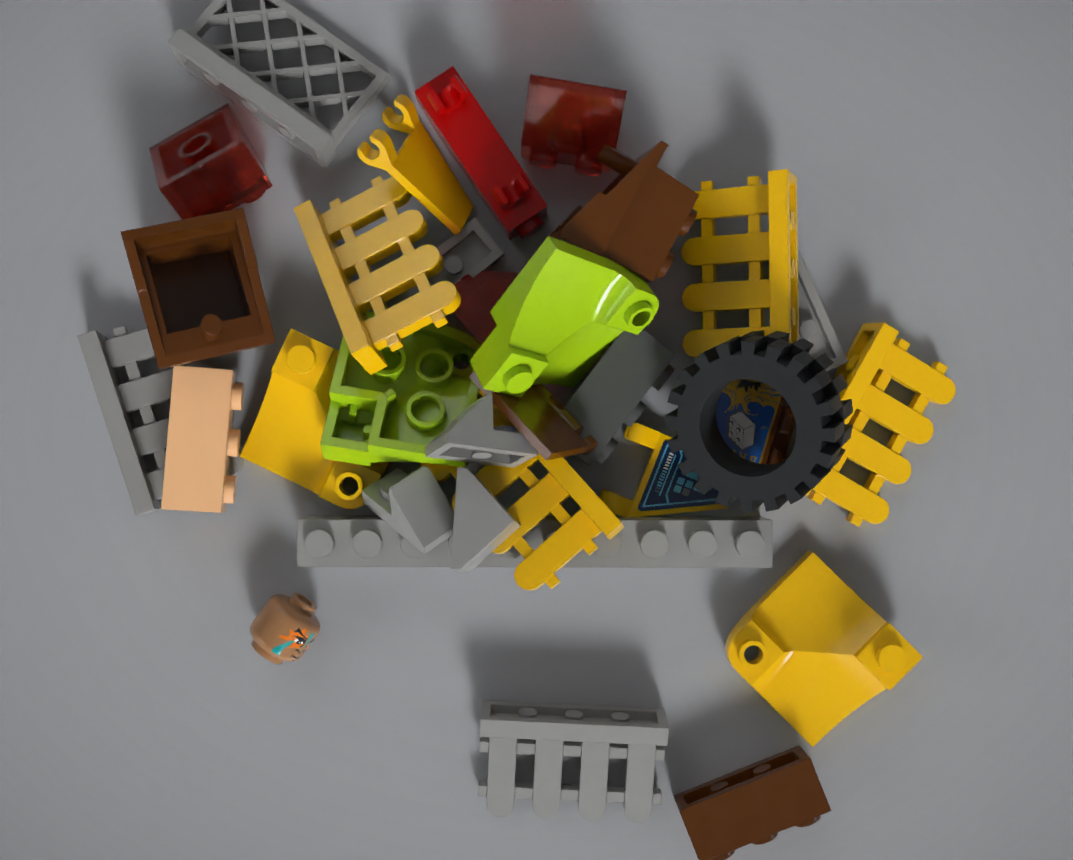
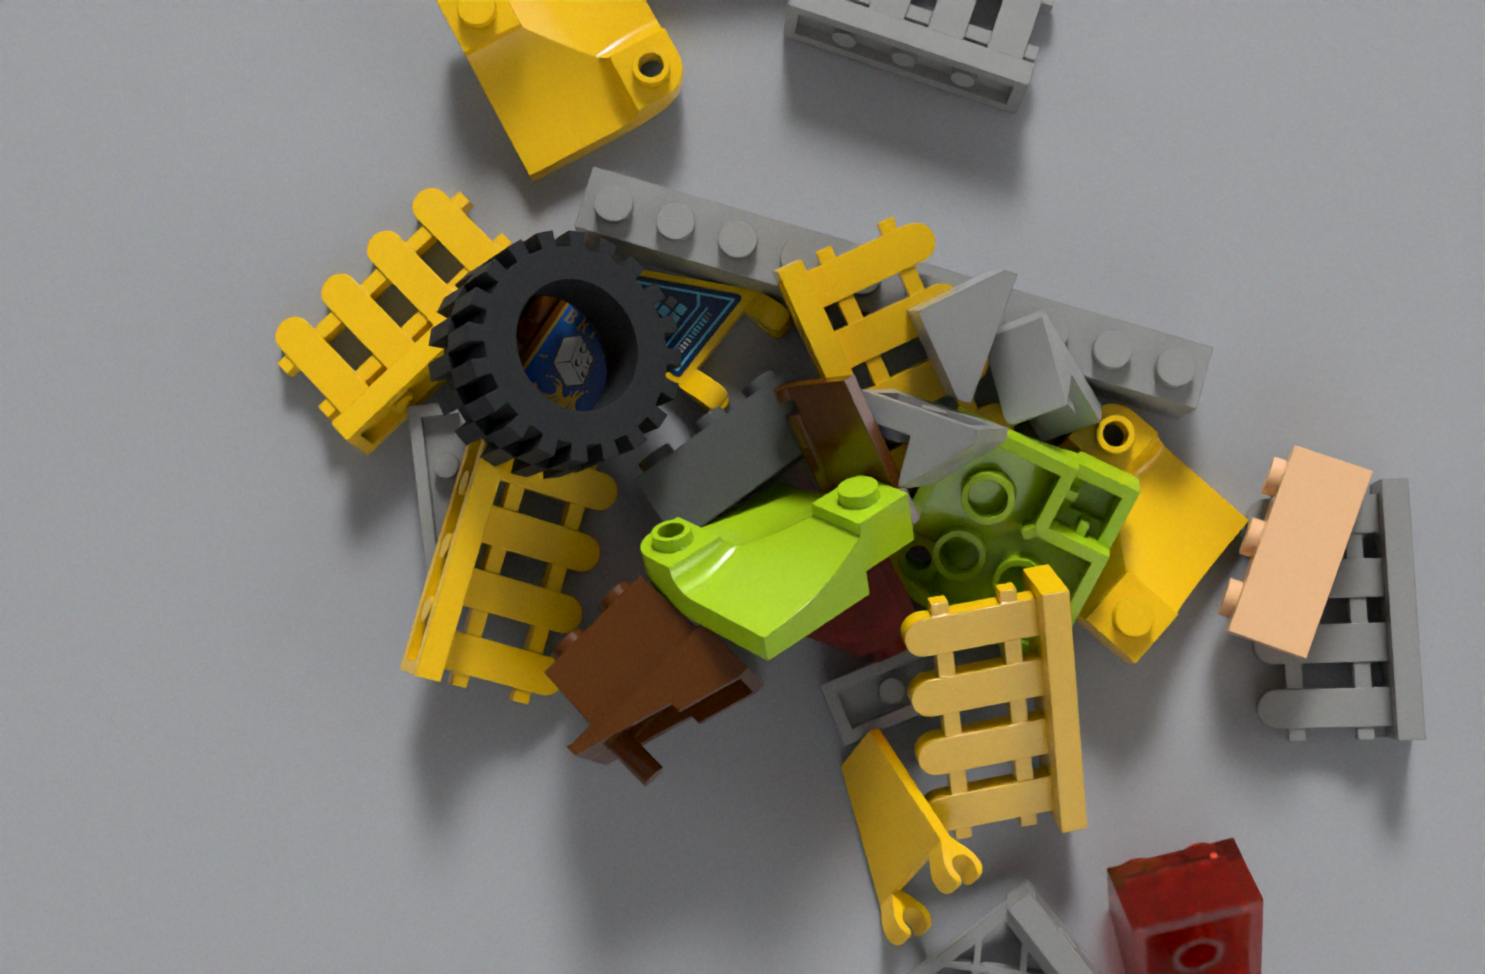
camera: 160 degrees left, 5 degrees down
(199, 287) = (1245, 746): reddish brown piece -> none
(285, 628) = (1249, 277): medium nougat head -> none
(482, 154) = (810, 828): red brick -> none
(570, 123) = (682, 828): clear red slope -> none

